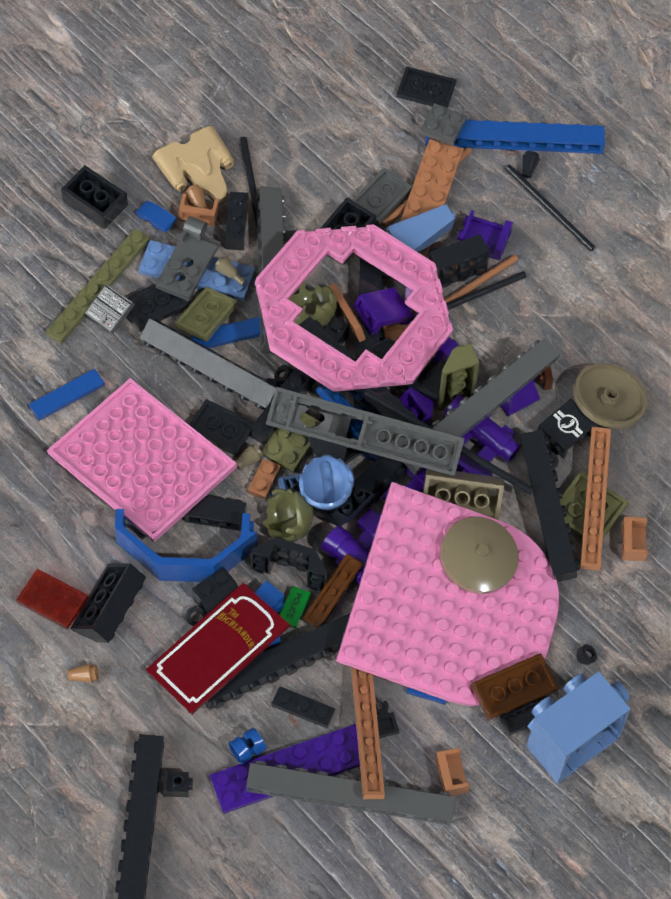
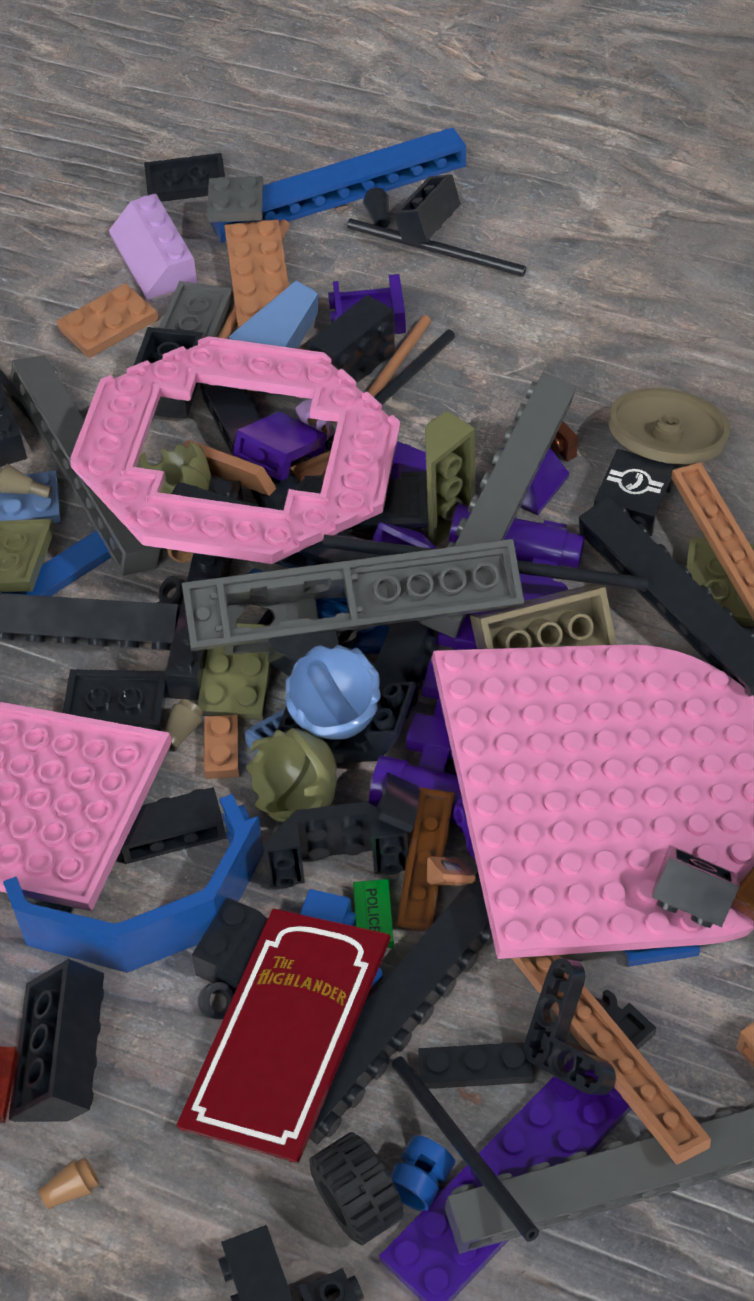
camera: 20 degrees left, 10 degrees down
(212, 739) = (356, 1188): none -> black tyre
(272, 762) = (466, 1150): none -> black piece
(330, 557) = (399, 802): none -> black slope
(331, 175) = (107, 320): none -> nougat plate
(339, 603) = (448, 871): none -> nougat slope
(340, 712) = (555, 1042): none -> black beam
(380, 135) = (152, 247): none -> lavender slope
(454, 670) = (695, 887): none -> black slope
(479, 555) = (625, 702): dark tan dish -> none
(555, 181) = (427, 209): none -> black brick

